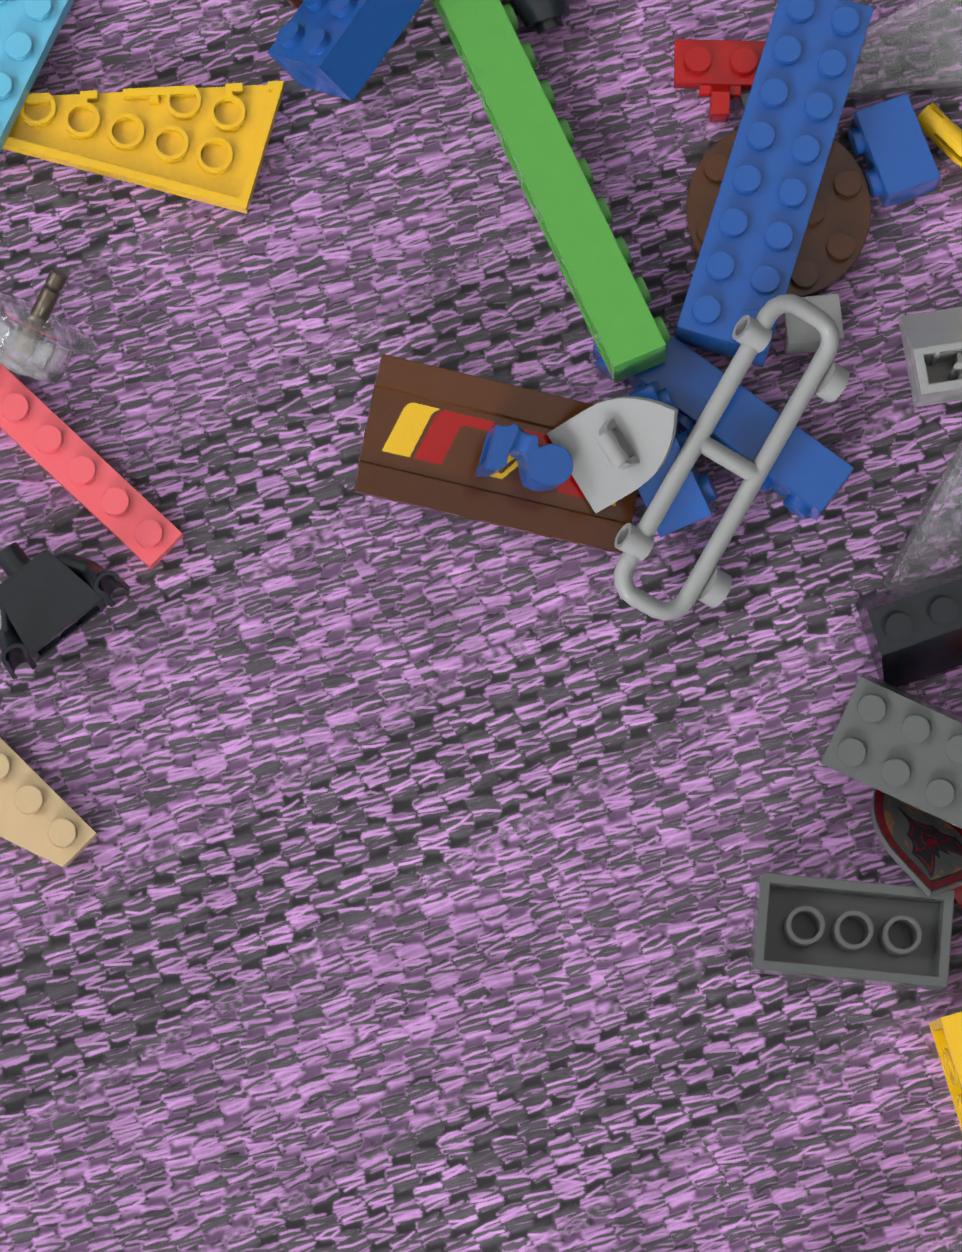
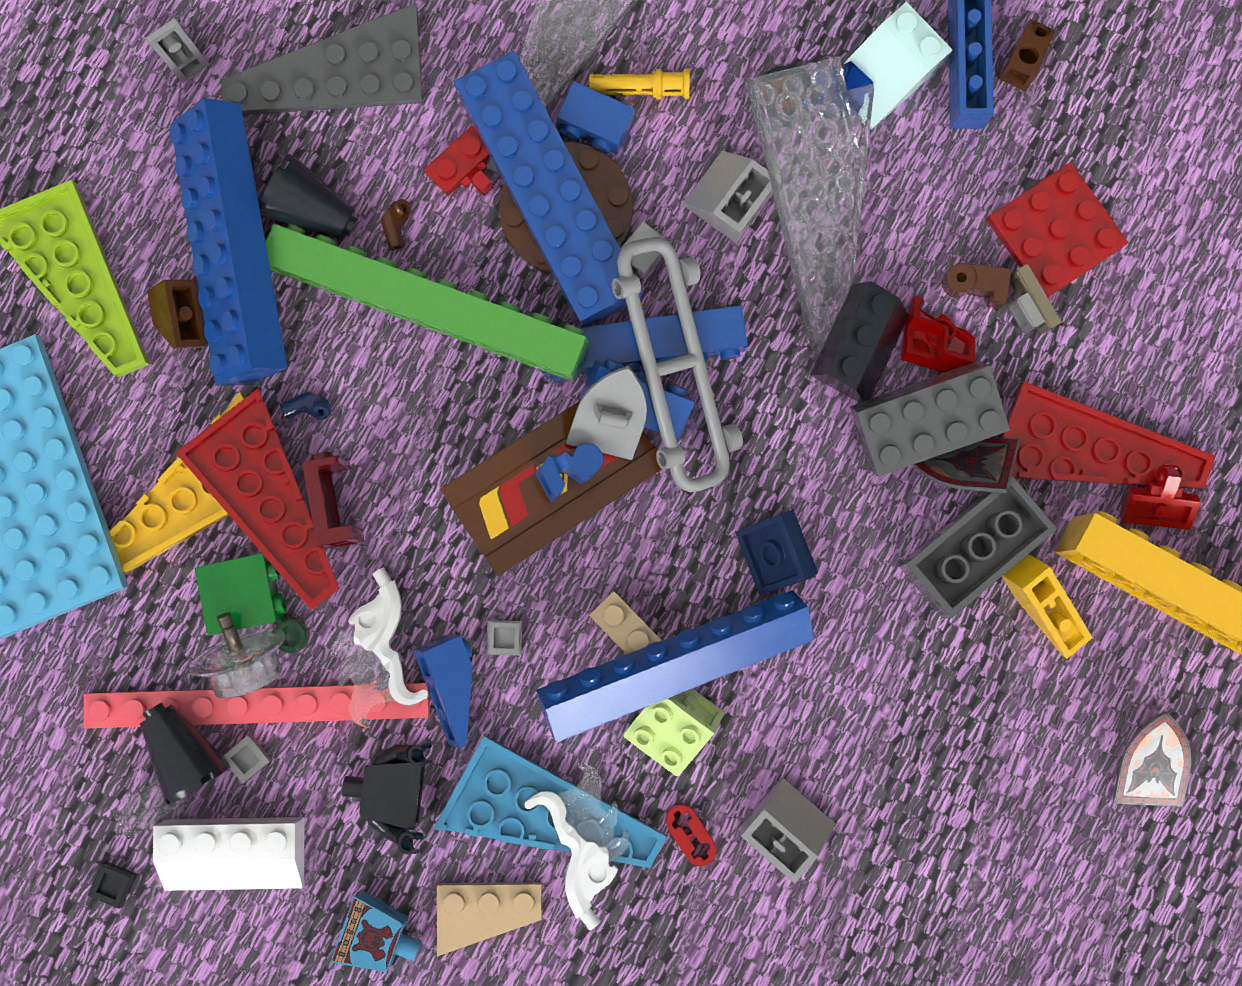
camera: 45 degrees left, 5 degrees up
(102, 272) = (242, 587): none -> green piece
(102, 366) = (296, 635): none -> dark green tile
(152, 454) = (369, 655): none -> piece
(160, 743) = (493, 798): none -> dark azure wing
(190, 831) = (589, 835): none -> piece
(205, 548) = (448, 679): none -> blue slope
(211, 176) = (253, 482): none -> red wing
(257, 262) = (324, 504): none -> dark red panel
(276, 929) = (683, 838): none -> red beam
(299, 564) = (504, 637): none -> light grey tile
(338, 157) = (309, 403): none -> dark blue arm
(378, 809) = (675, 729): none -> yellowish green bracket
(387, 1017) = (787, 830): none -> light grey slope
(425, 668) = (623, 624): none -> tan brick
(440, 745) = (674, 665): none -> brick
(596, 61) = (393, 221): none -> reddish brown arm
(649, 742) = (776, 552): none -> dark blue bracket
(866, 1062) = (1047, 604): none -> yellow slope

